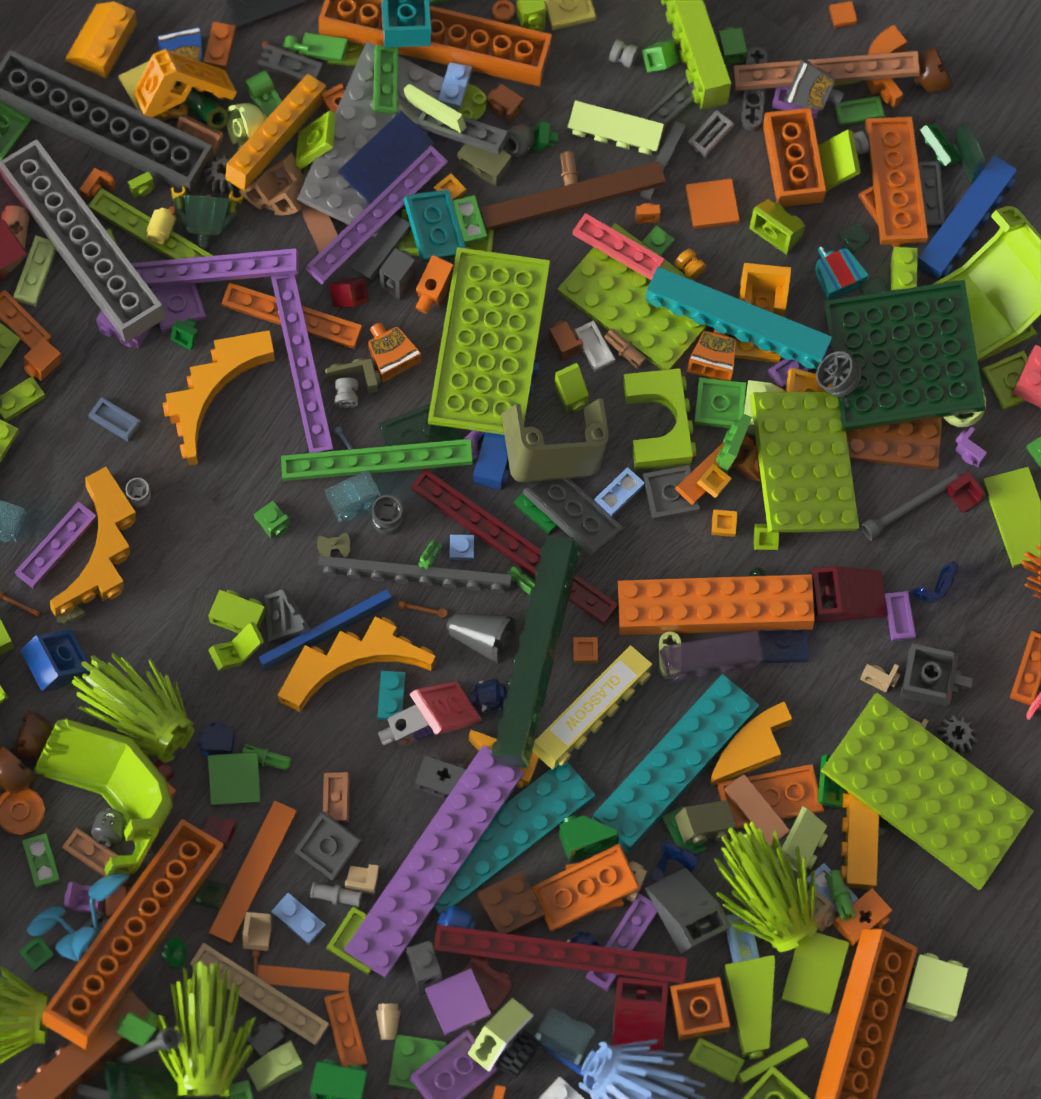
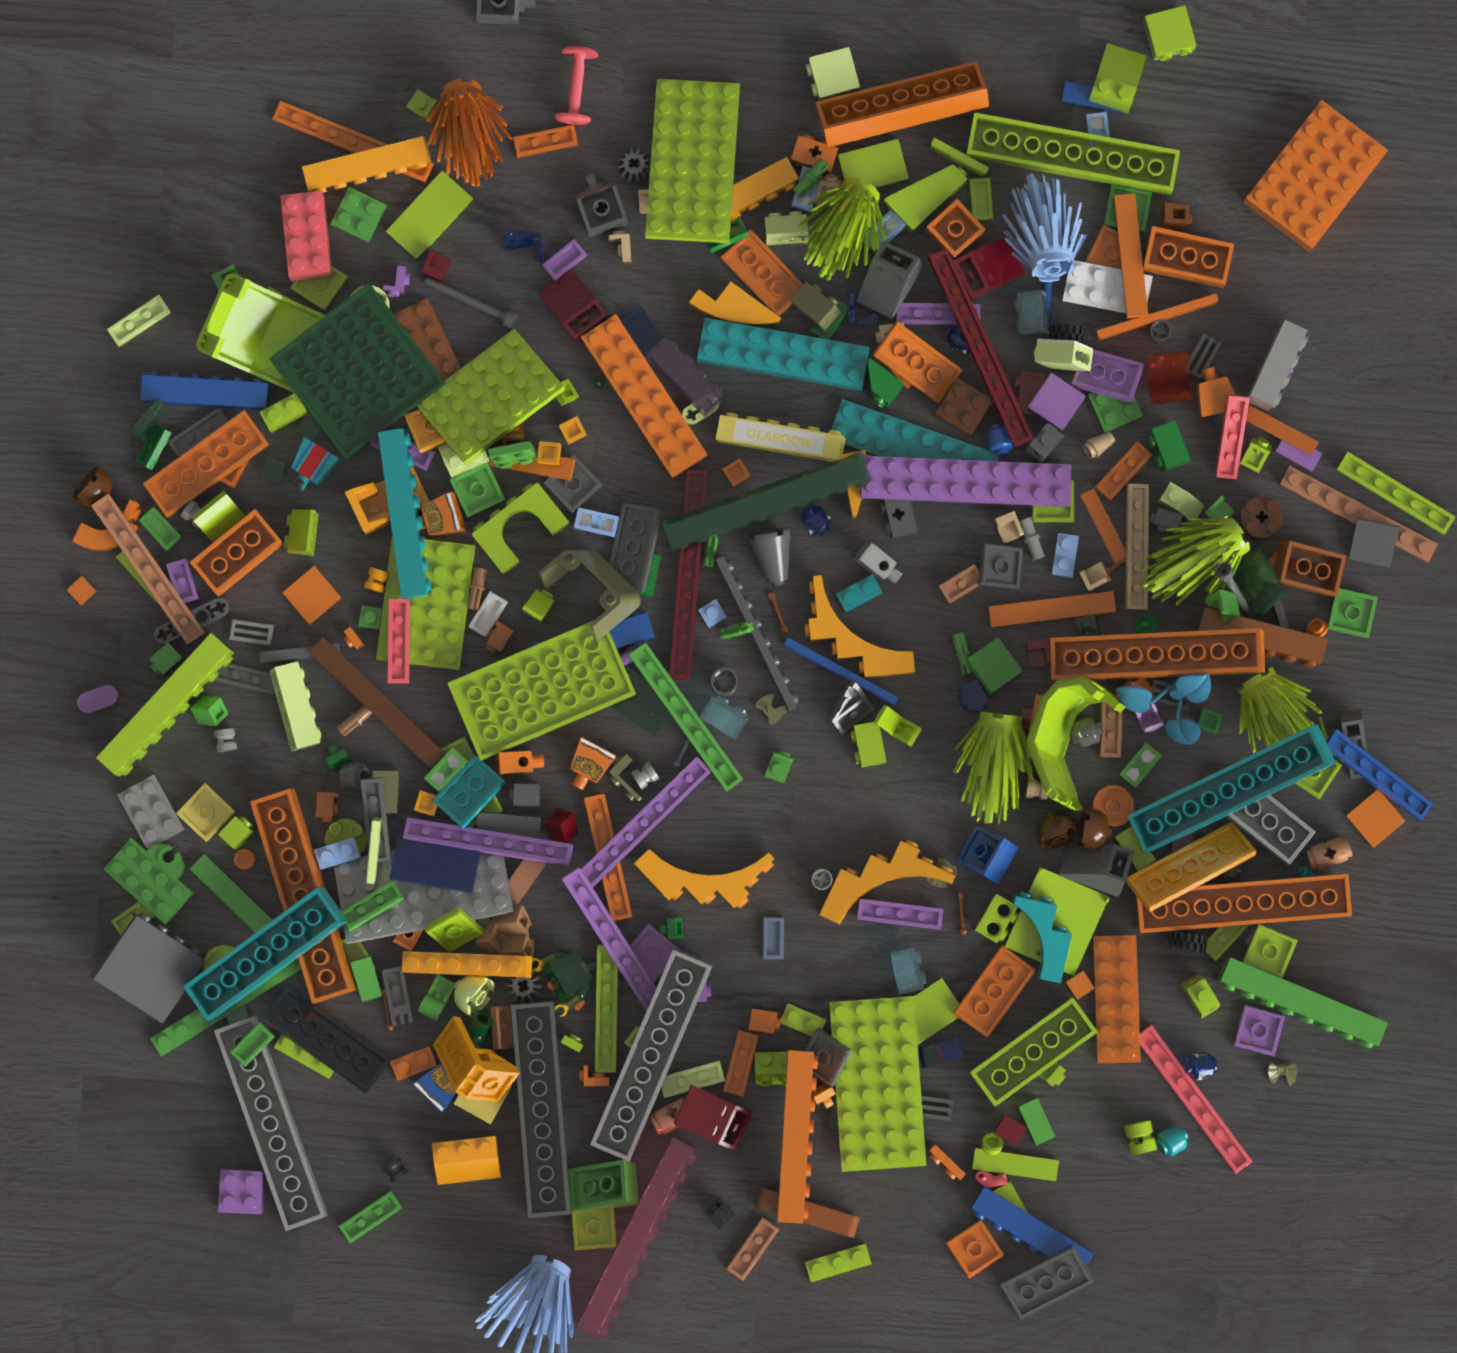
camera: 120 degrees left, 15 degrees up
(160, 226) = (600, 1002): light yellow brick -> none
(292, 43) = (378, 1006): bright green hand -> none
(446, 707) = (848, 542): coral tile -> none
(756, 808) = (782, 275): nougat tile -> none
(812, 87) = (173, 569): torso -> none
(839, 374) = (407, 408): dark grey wheel -> none

